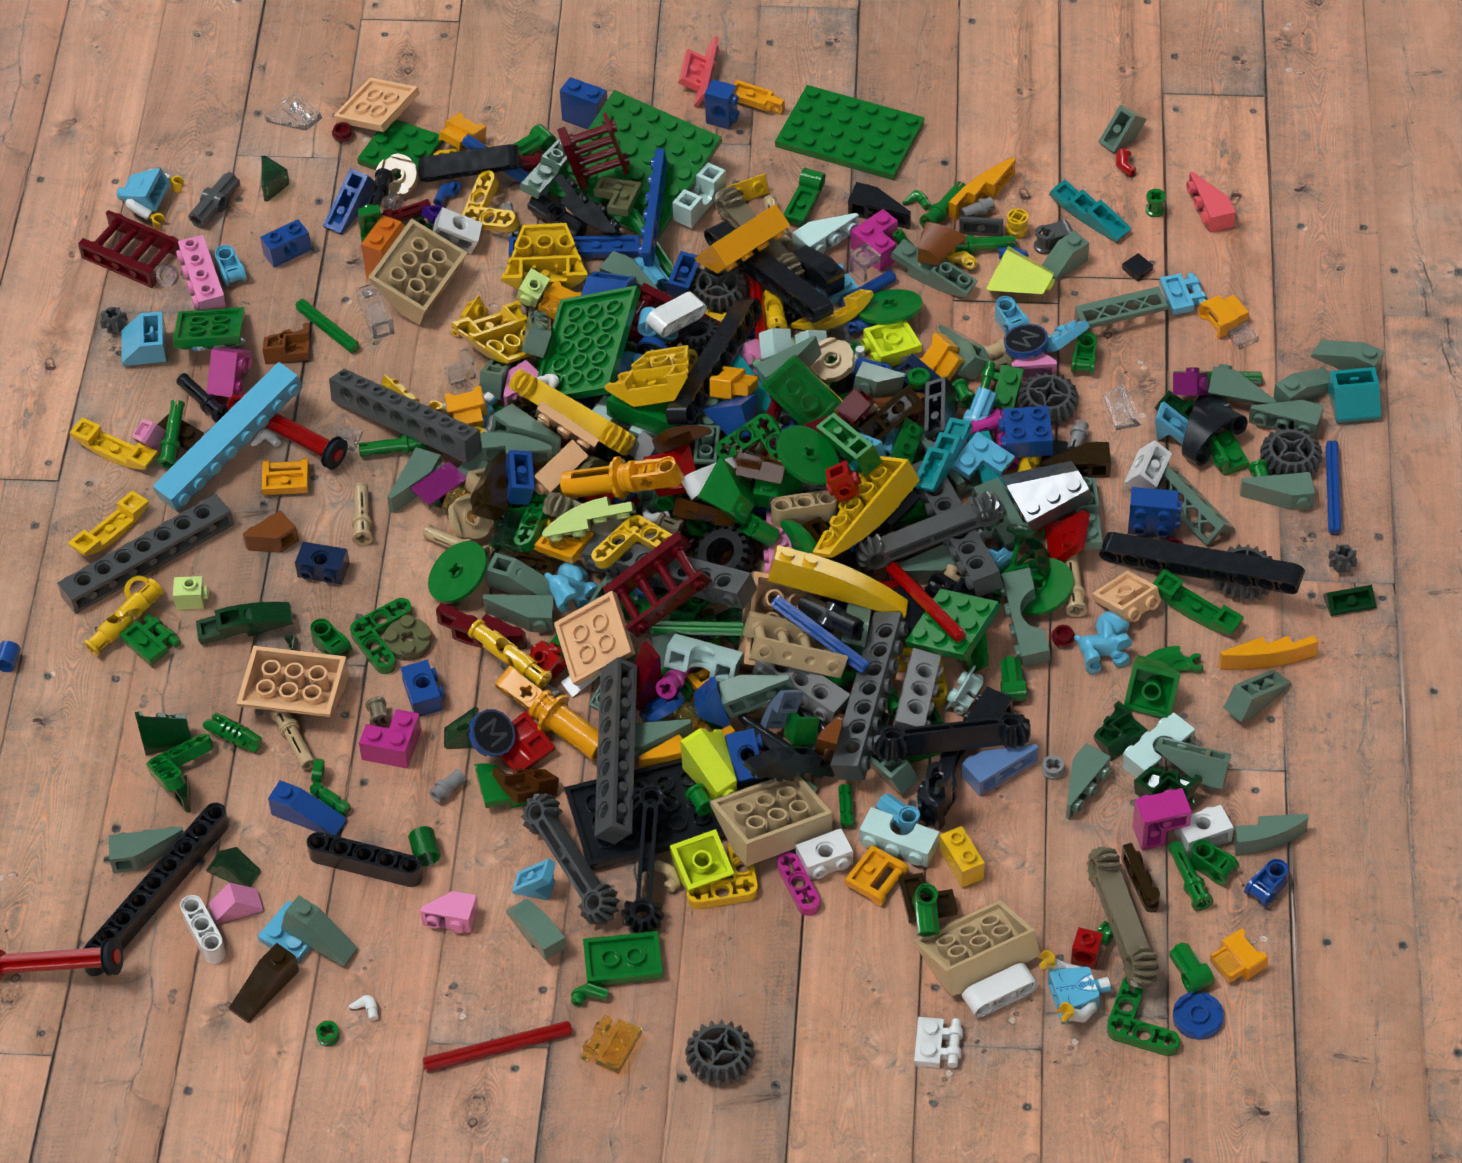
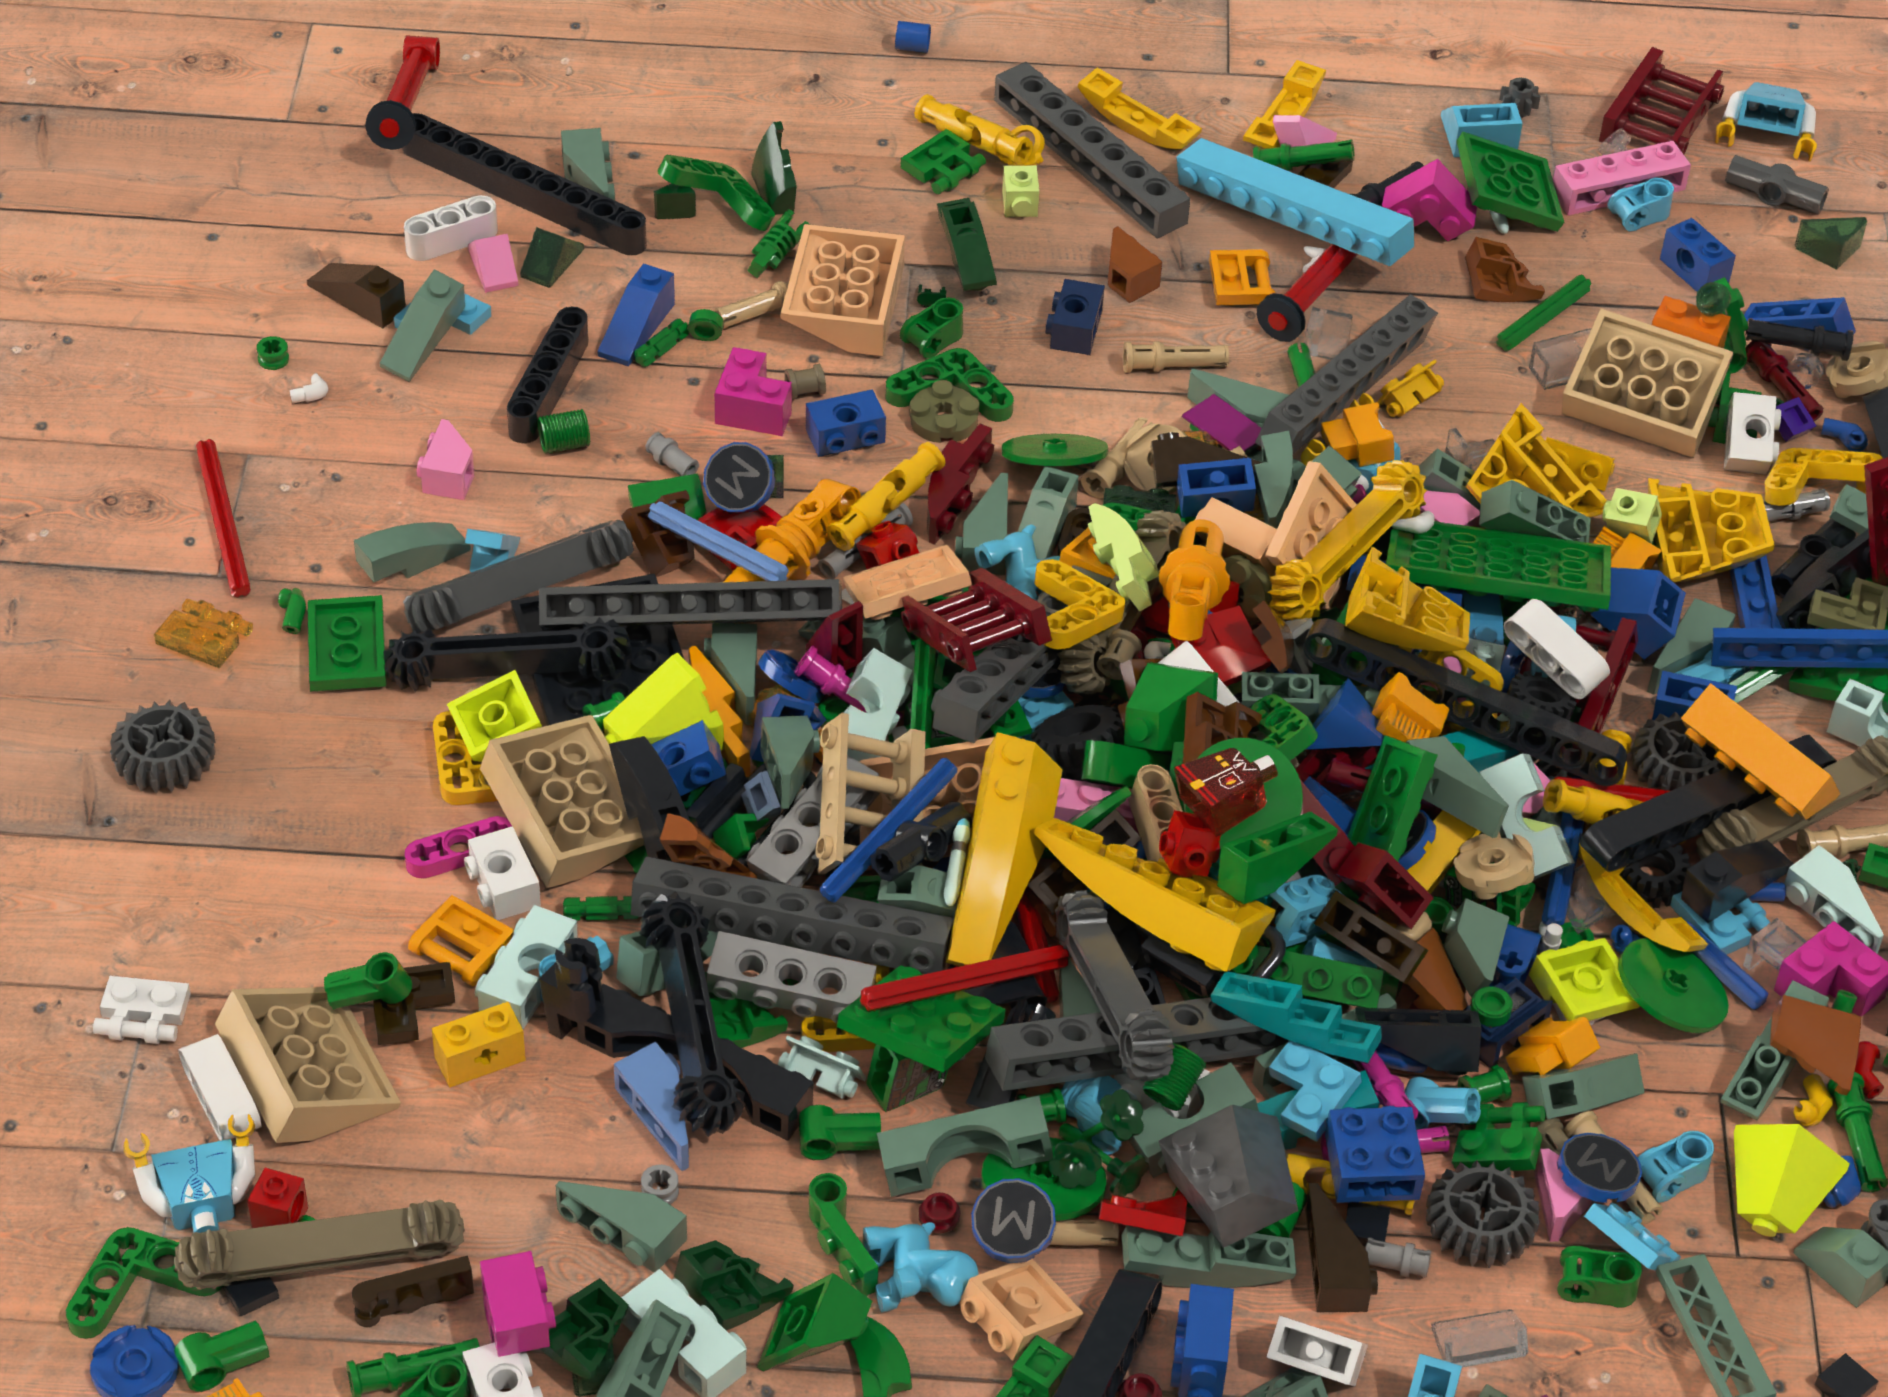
camera: 85 degrees right, 5 degrees down
(378, 216) = (1713, 298): none -> clear green plate
(550, 746) = (717, 542): none -> medium blue axle
(820, 451) = (1224, 787): none -> clear red torso
(844, 602) = (956, 862): none -> light aqua piece
(1066, 685) = (837, 1236): none -> green plate
(1080, 591) = (1013, 1220): none -> black tile

